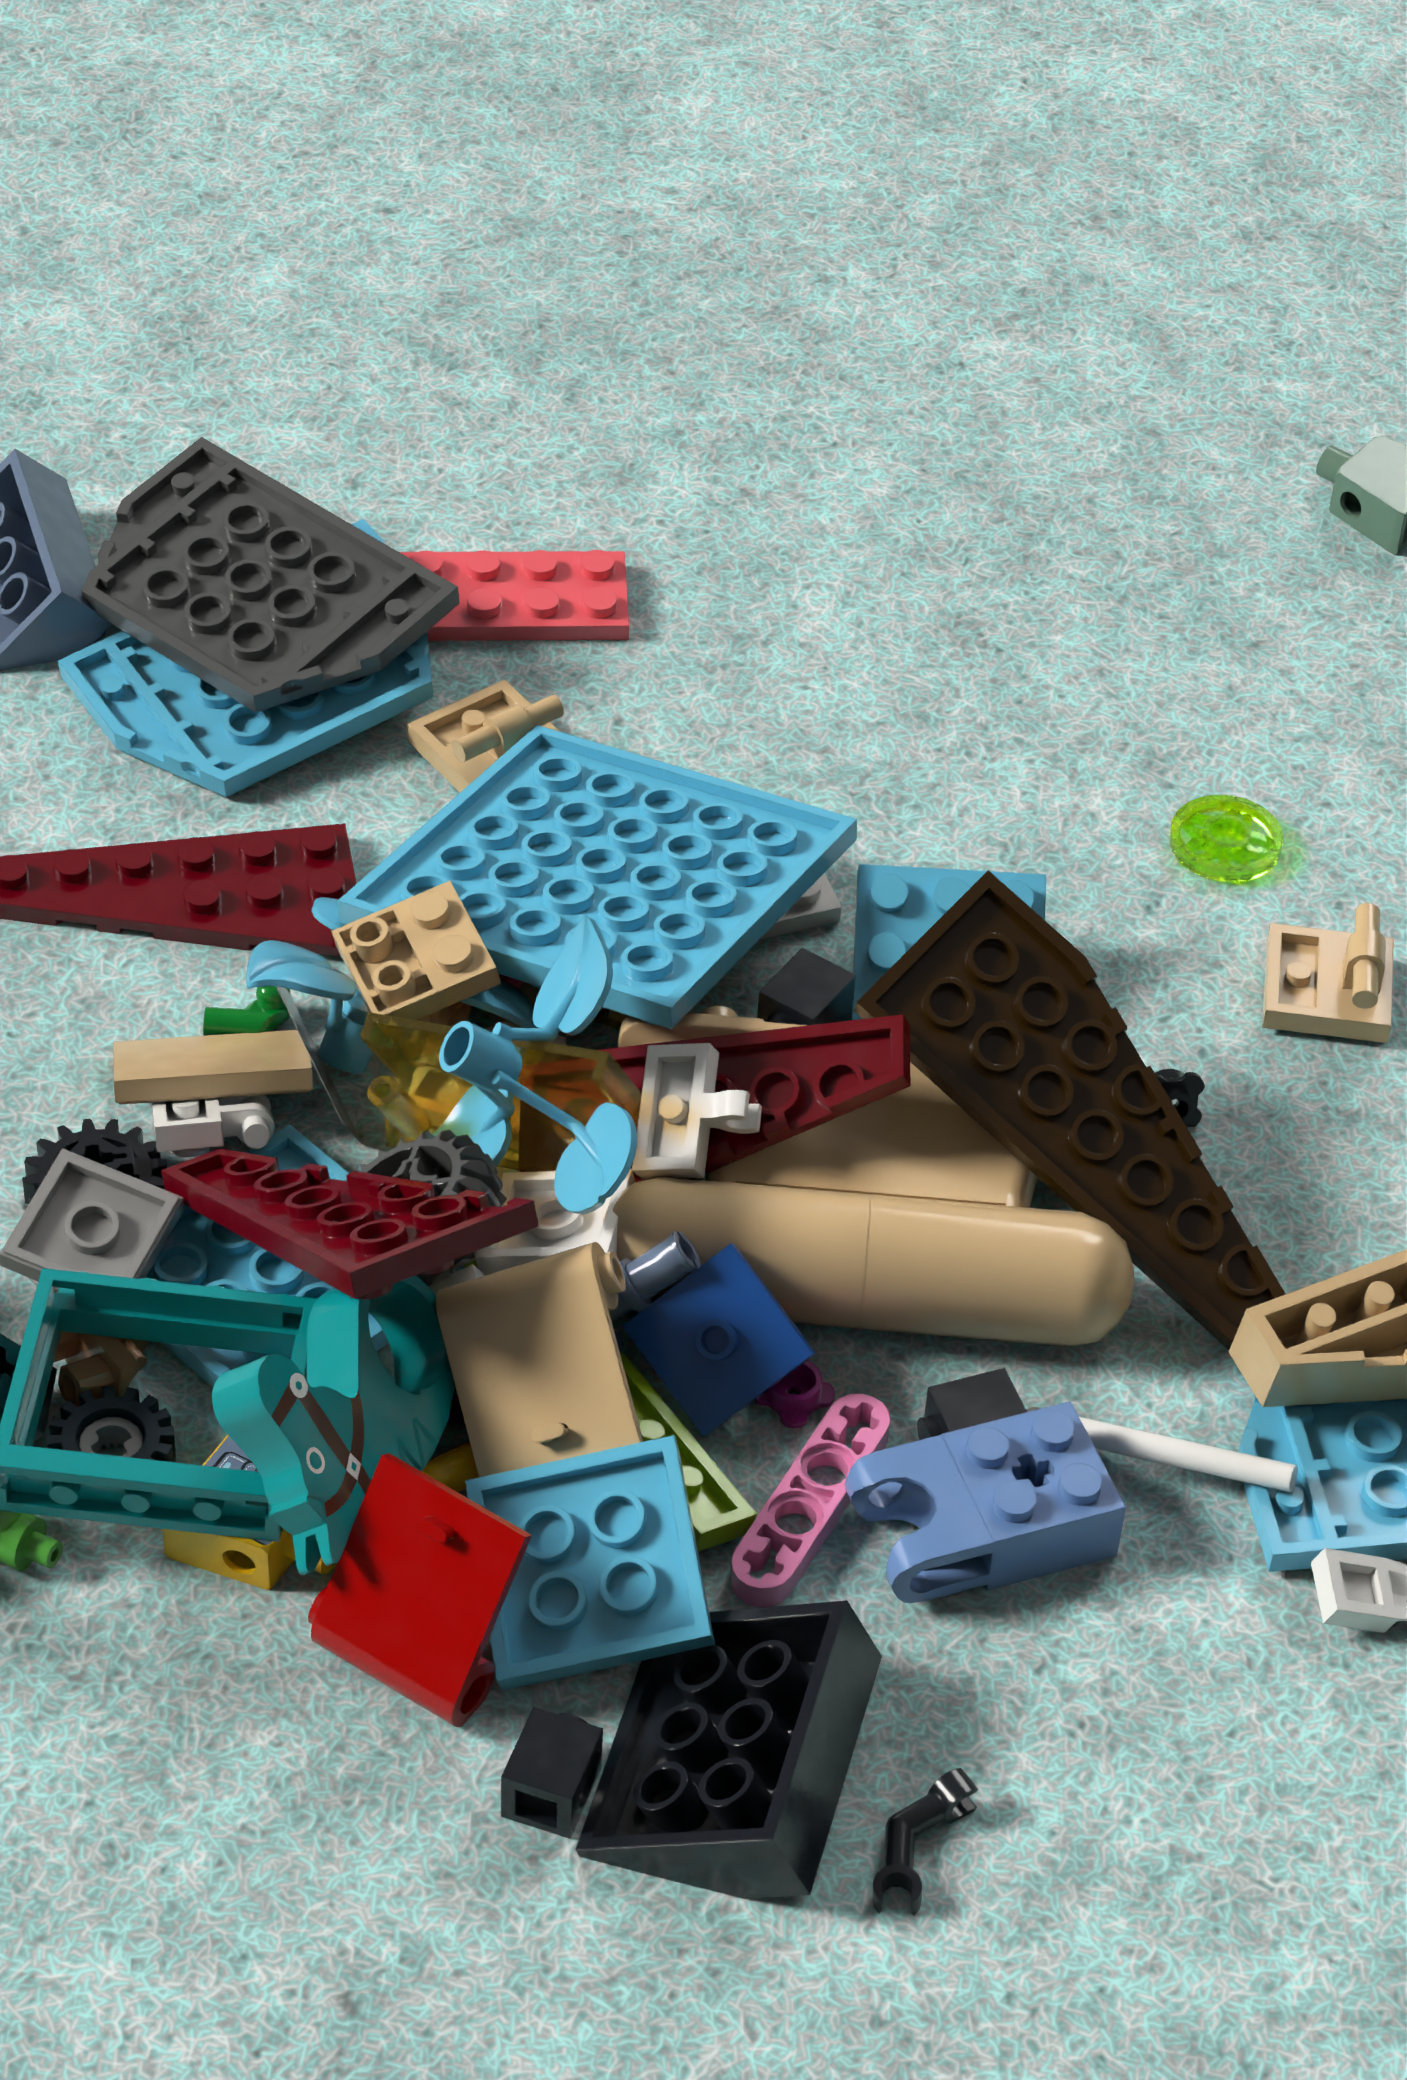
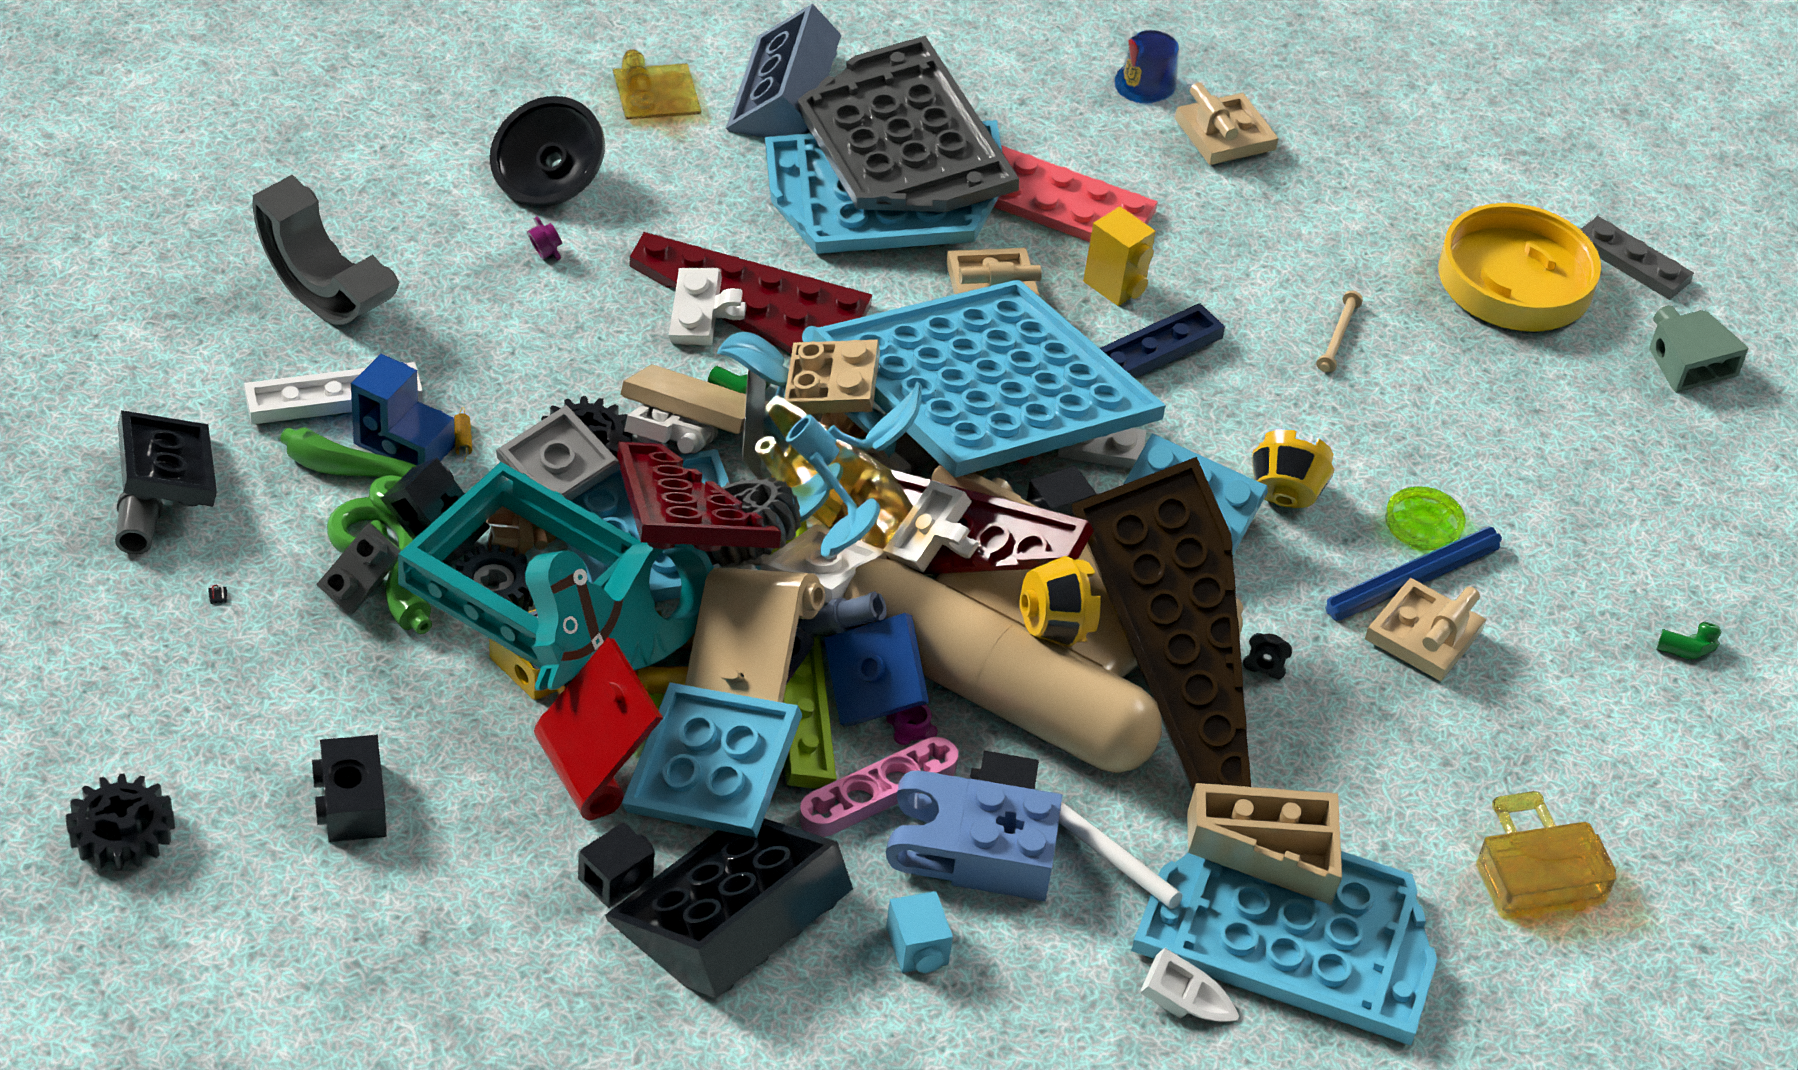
camera: 25 degrees right, 0 degrees up
(106, 1800) = (352, 788): none -> black brick
(128, 934) = (699, 304): none -> white plate
(496, 375) = (1149, 68): none -> clear blue hat
(641, 419) = (1224, 126): none -> tan plate
(642, 643) = (1119, 256): none -> yellow brick
(764, 729) = (1165, 340): none -> dark blue plate
(925, 1139) = (1059, 601): none -> yellow cone
(945, 1801) = (838, 986): black arm -> none
(973, 682) = (1327, 362): none -> tan axle
(1005, 1675) = (919, 932): none -> medium azure brick
(1042, 836) = (1292, 468): none -> yellow cone
(1121, 465) = (1519, 267): none -> yellow brick
(1236, 401) = (1637, 258): none -> dark grey plate
(1268, 906) = (1420, 569): none -> blue axle

